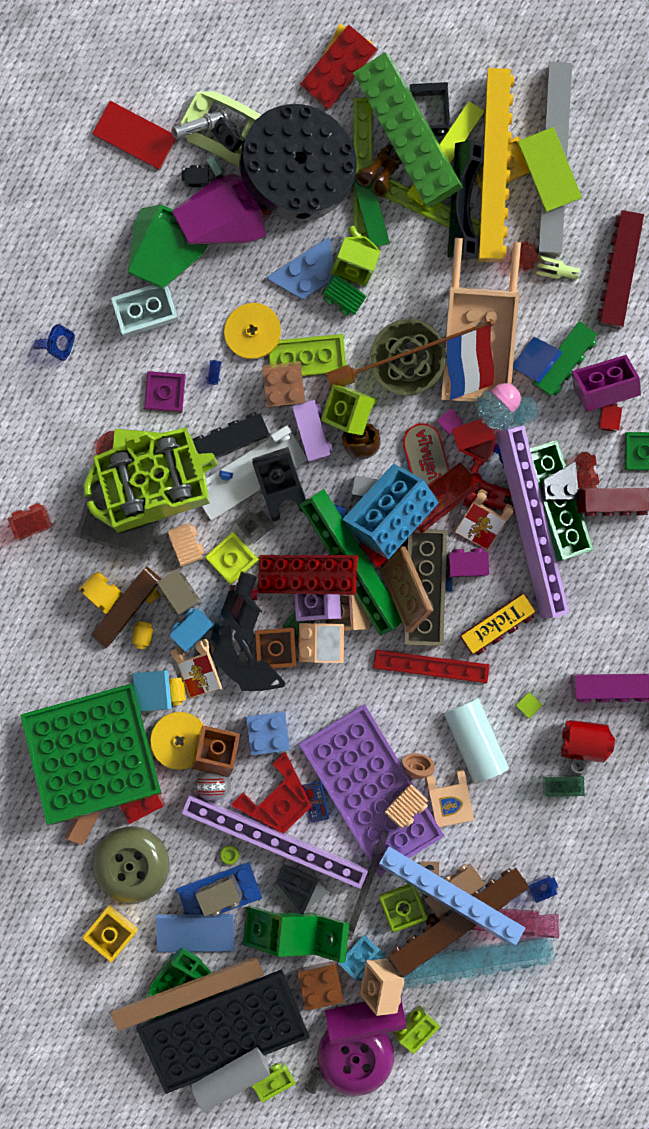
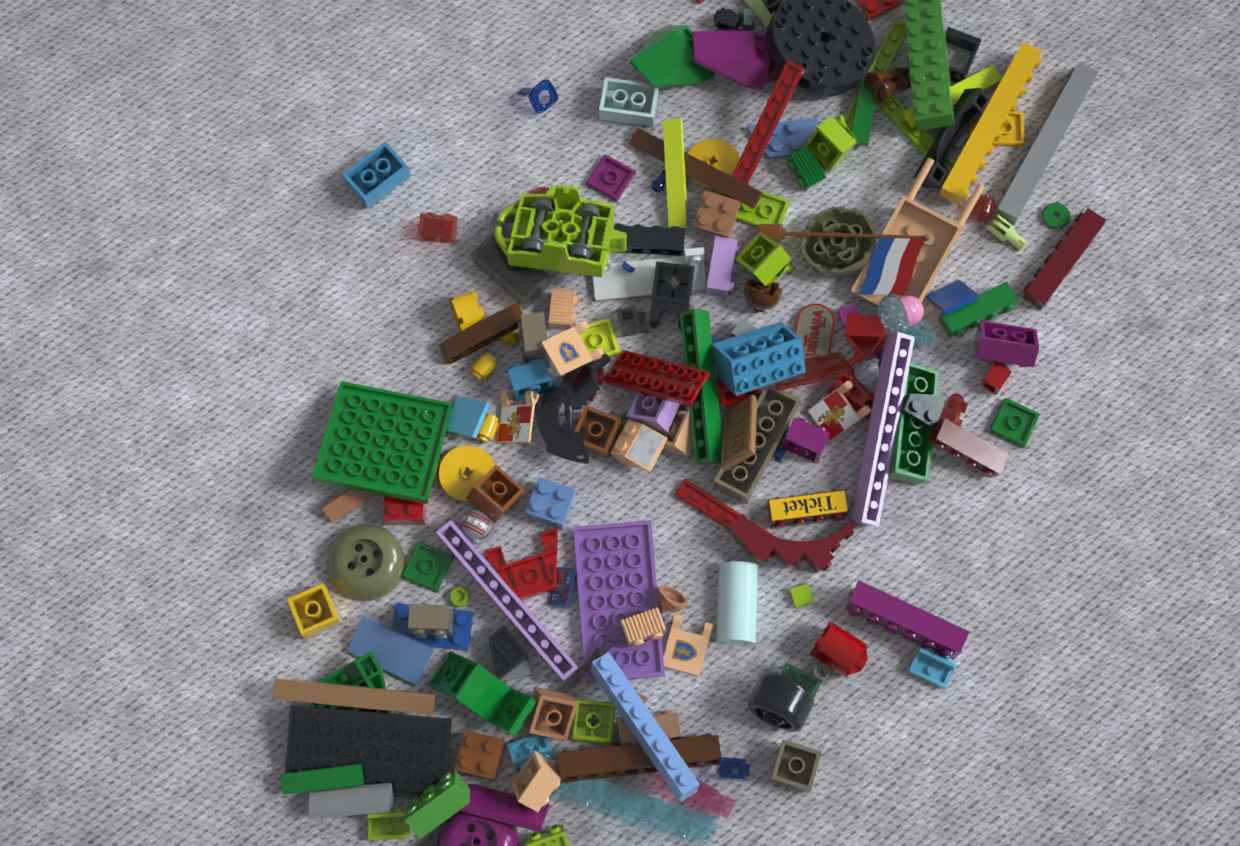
camera: 25 degrees right, 15 degrees down
(187, 841) = (427, 566): none -> green tile
(196, 1073) = (322, 779): none -> green tile
(218, 594) = (568, 351): none -> light nougat flag
(224, 361) = (675, 173): none -> neon yellow tile
(240, 347) = (700, 170): none -> reddish brown tile
(288, 282) = (767, 123): none -> red tile
(307, 1048) = (437, 804): none -> bright green brick
(366, 922) = (551, 714): none -> nougat brick
(523, 661) = (760, 543): none -> dark red arch
(549, 169) = (1038, 146): lime tile -> none
(557, 814) = (781, 702): none -> black wheel
(594, 220) = (1056, 208): none -> green piece
(595, 860) = (795, 766): none -> dark tan brick

